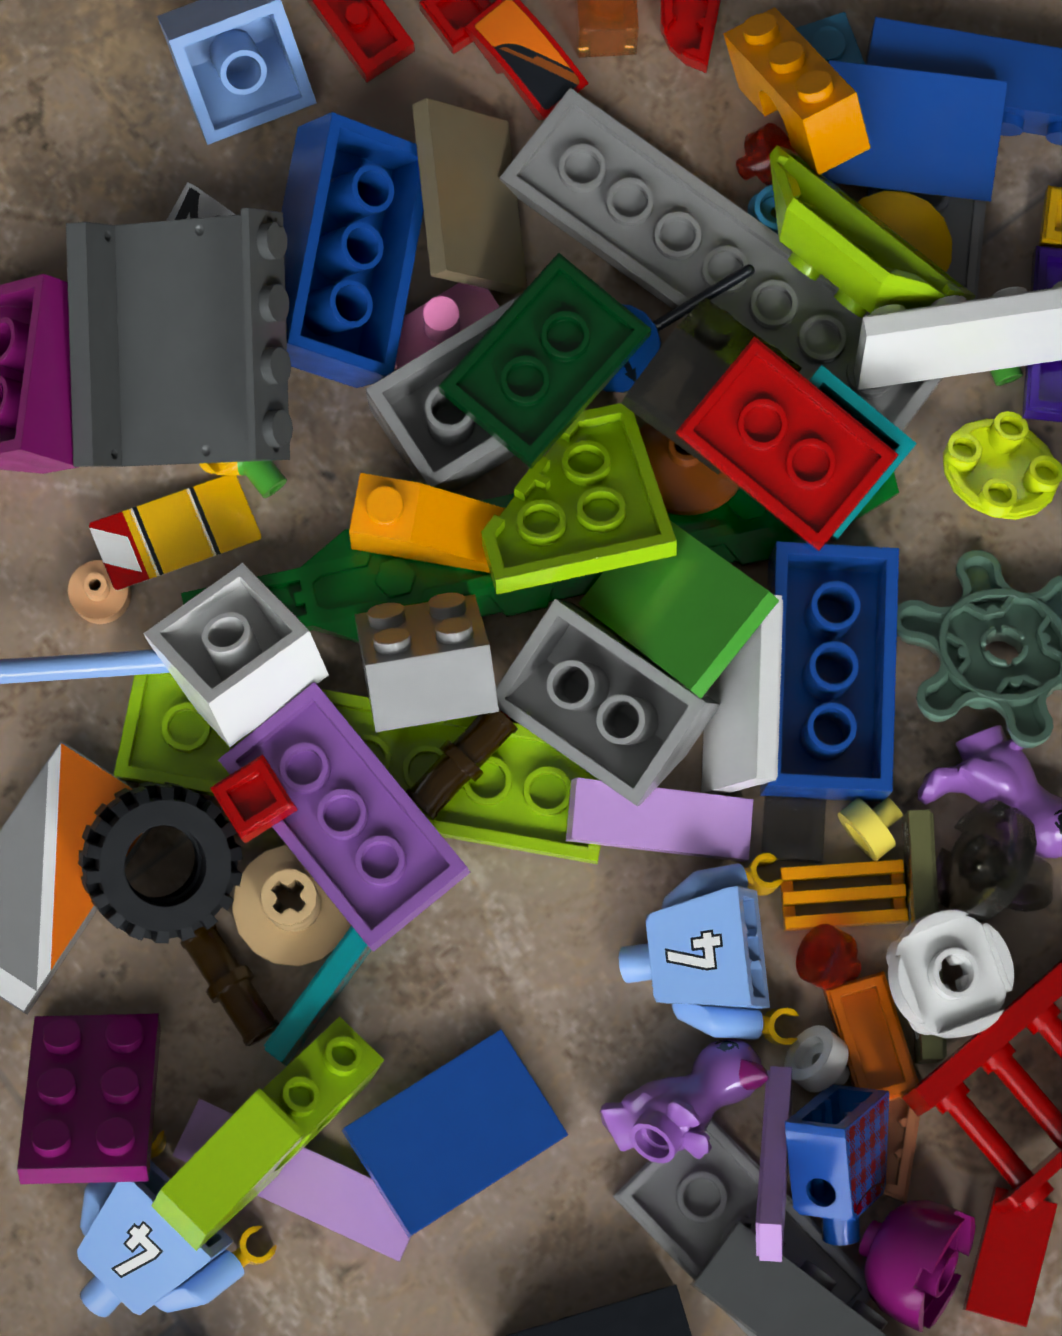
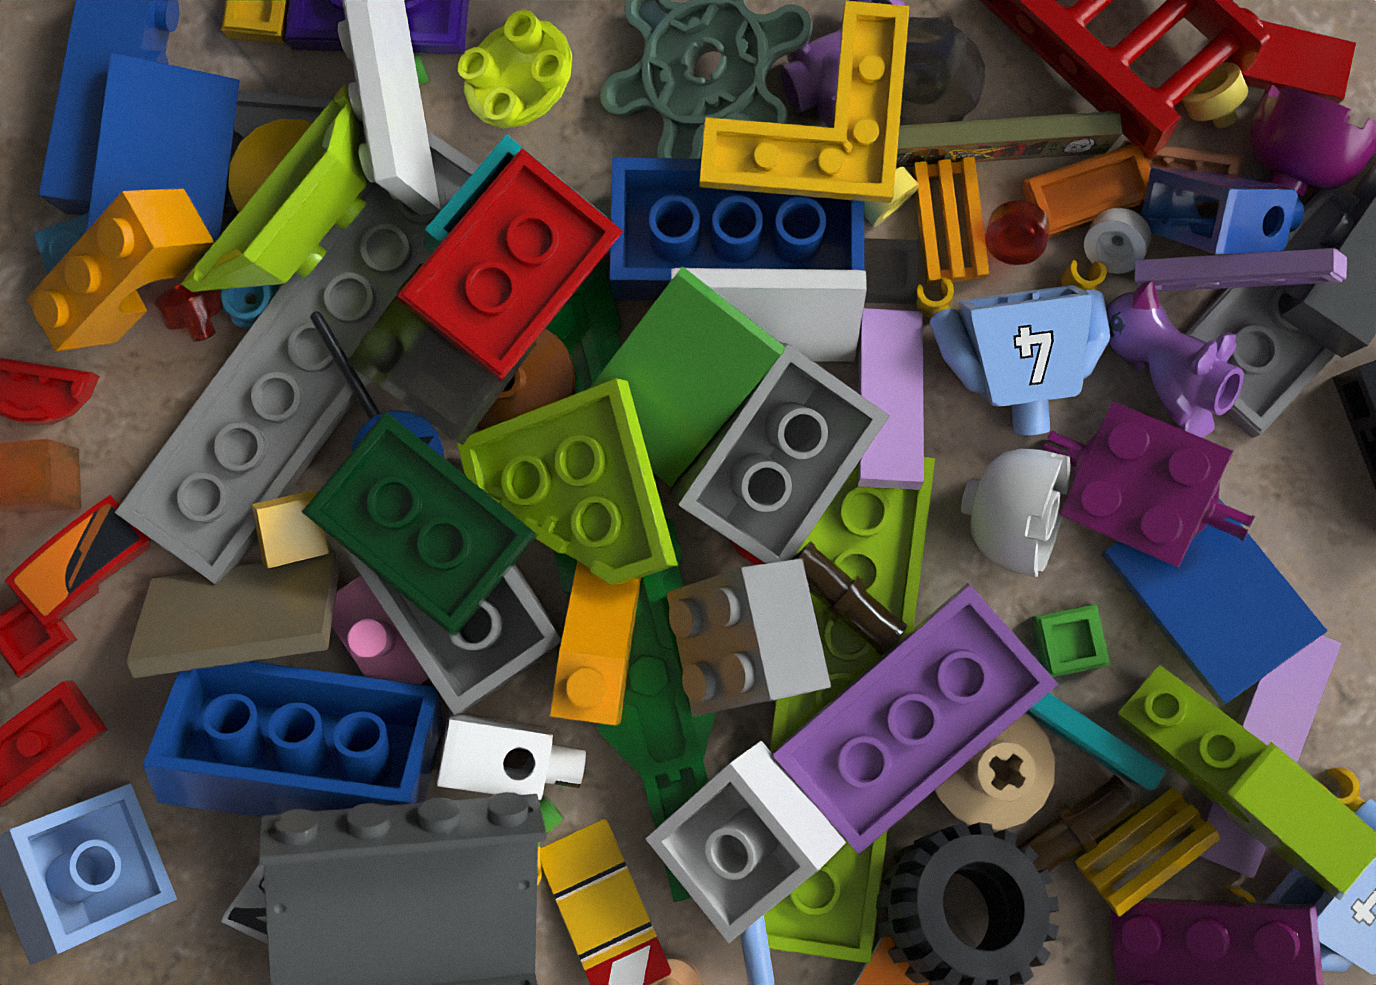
camera: 90 degrees left, 5 degrees up
(211, 1046) = (1131, 833): none -> yellow tile
(253, 798) = (904, 814): red tile -> none
(325, 410) = (476, 750): none -> white torso
(412, 993) = (1071, 640): none -> bright green tile
(543, 239) = (286, 532): none -> yellow tile
(543, 939) = (1018, 508): none -> white cylinder
(564, 1067) = (1148, 484): none -> magenta plate
(901, 783) = (838, 162): none -> yellow plate
(916, 983) = (1040, 133): white plate -> none
(968, 1172) = (1218, 96): none -> light yellow tile

